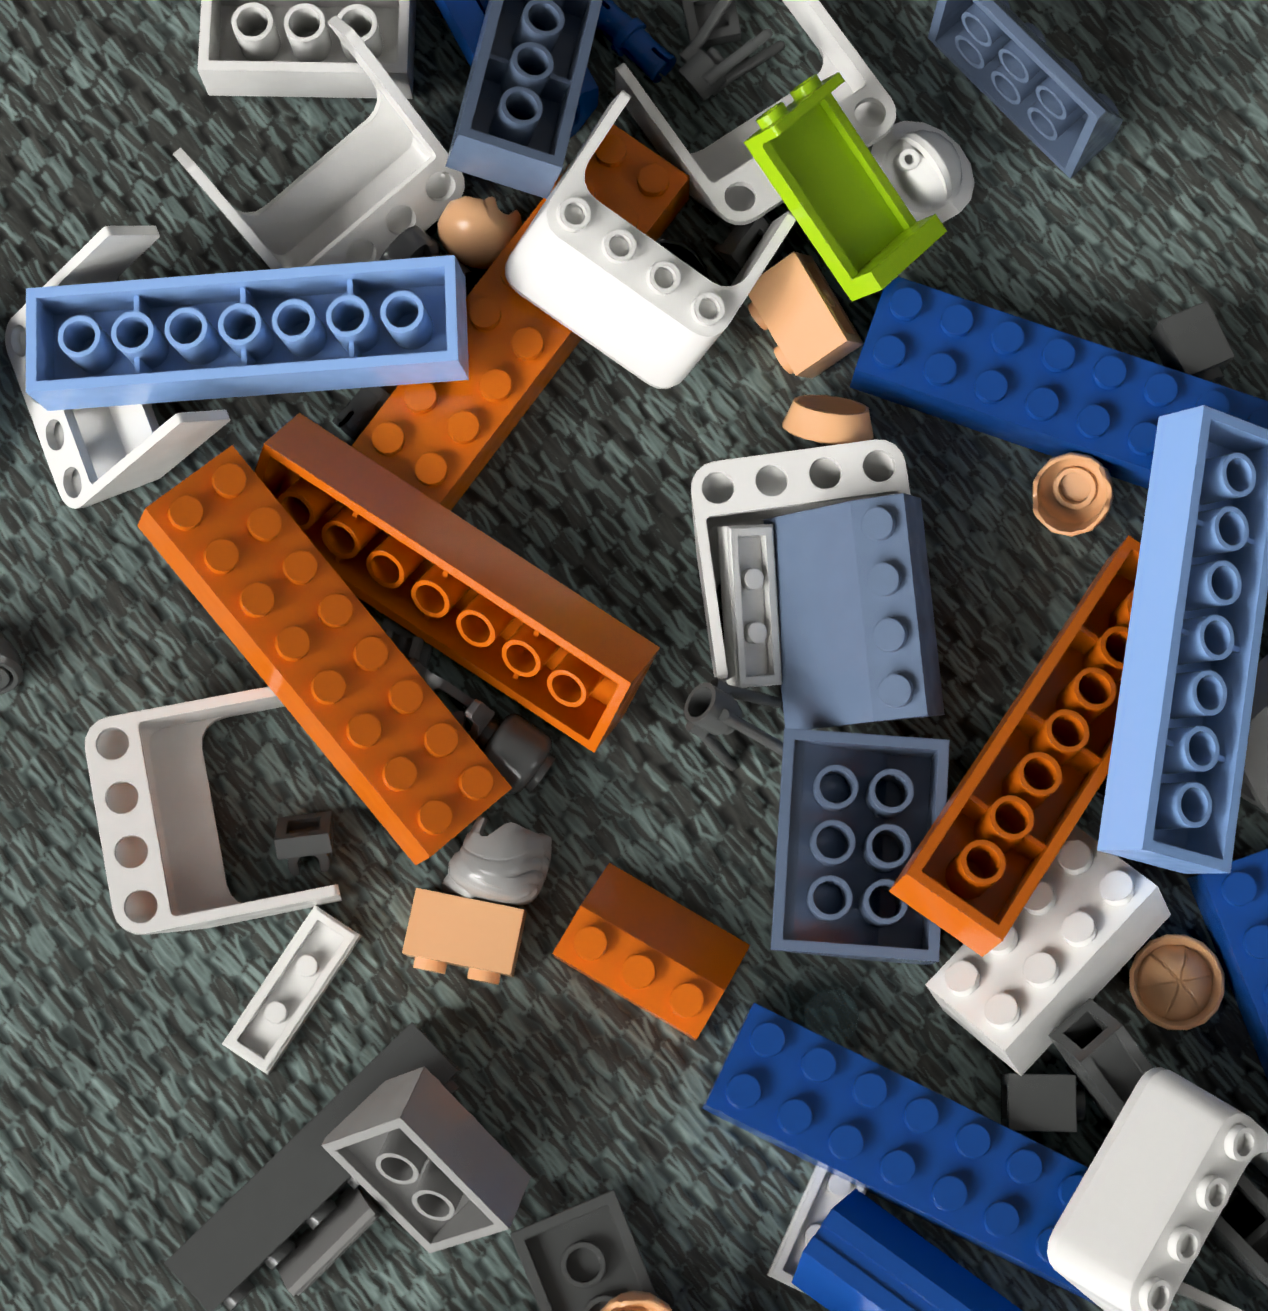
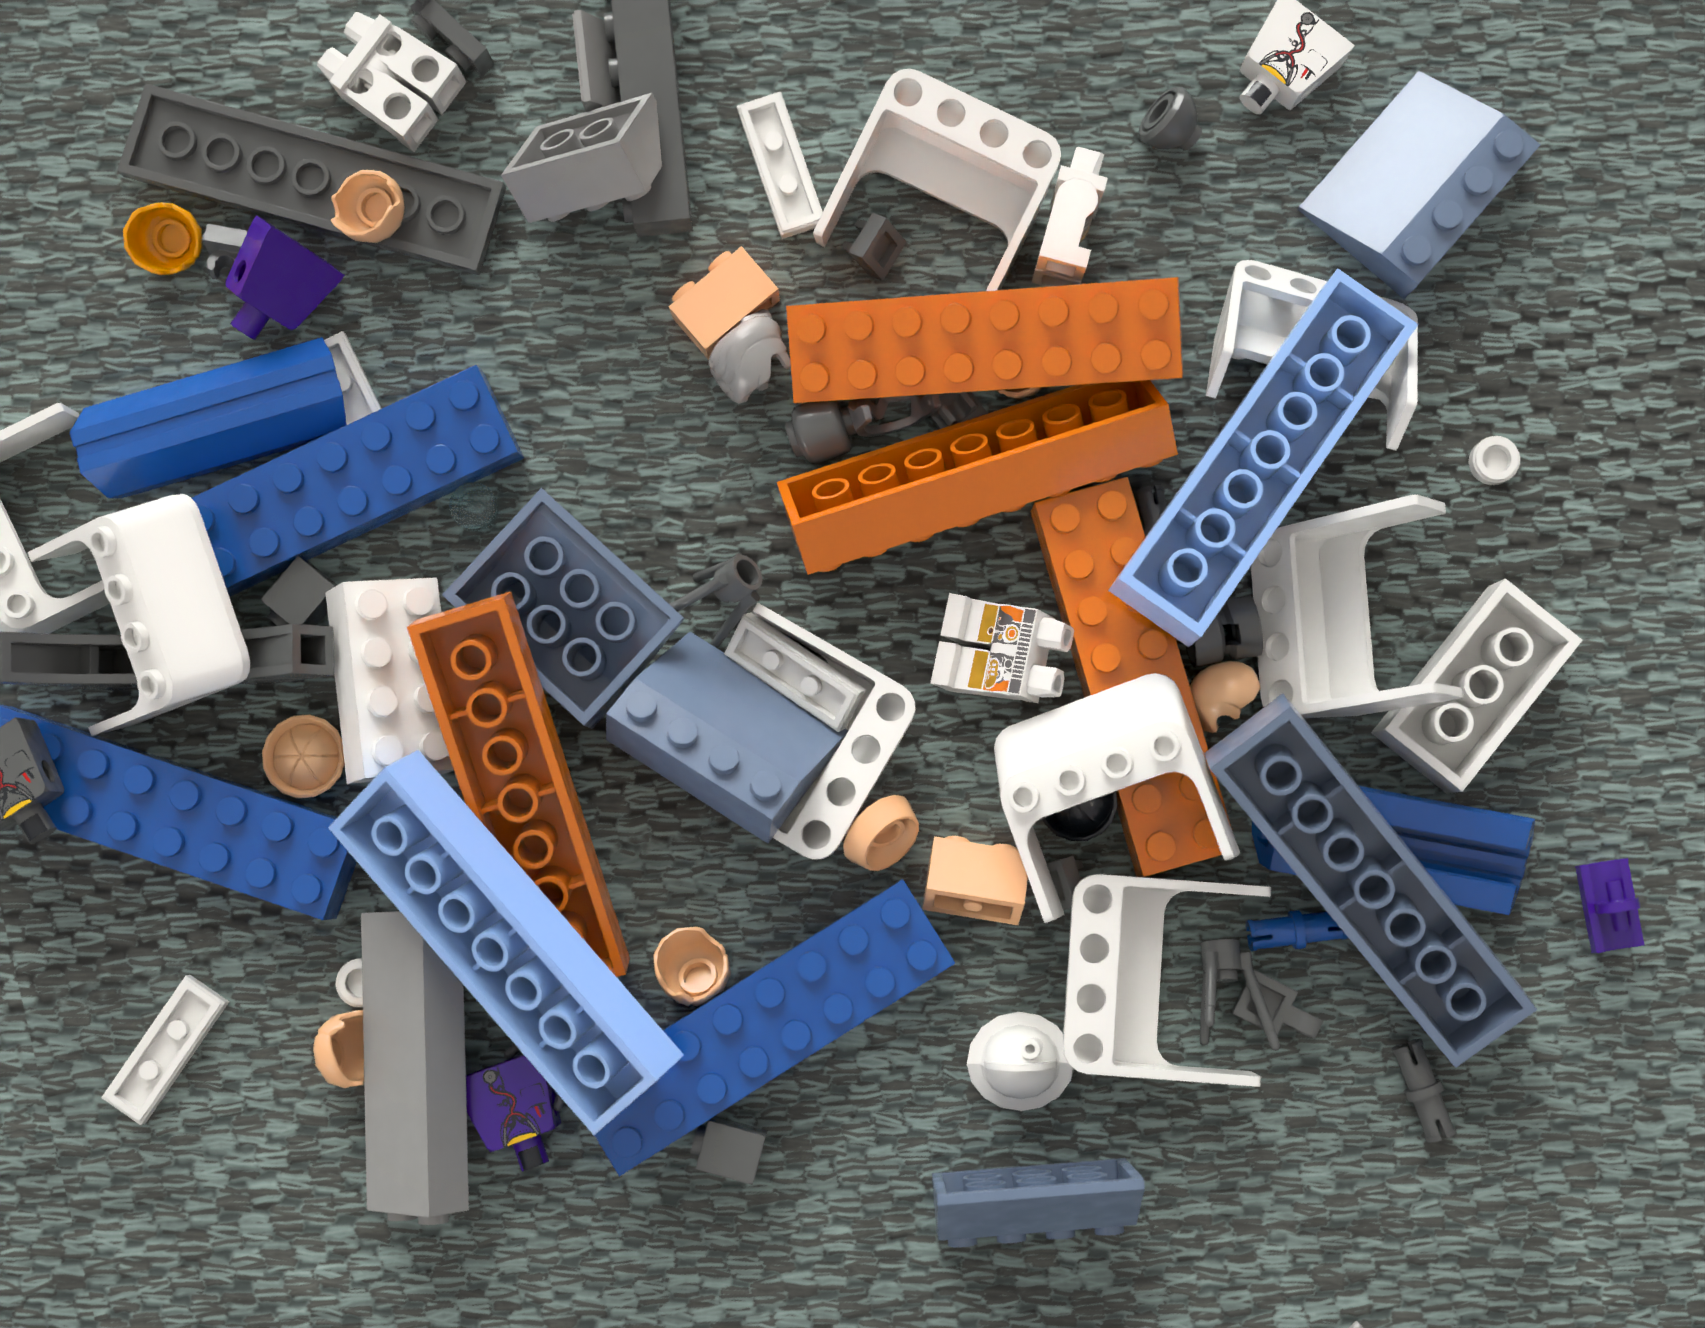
camera: 130 degrees right, 5 degrees up
(91, 168) = (1494, 460): none -> white tile
(153, 674) = (1073, 208): none -> white hips
(588, 422) = (1017, 654): none -> white hips
(651, 951) = (611, 417): orange slope -> none
(838, 190) = (1041, 970): lime panel -> none

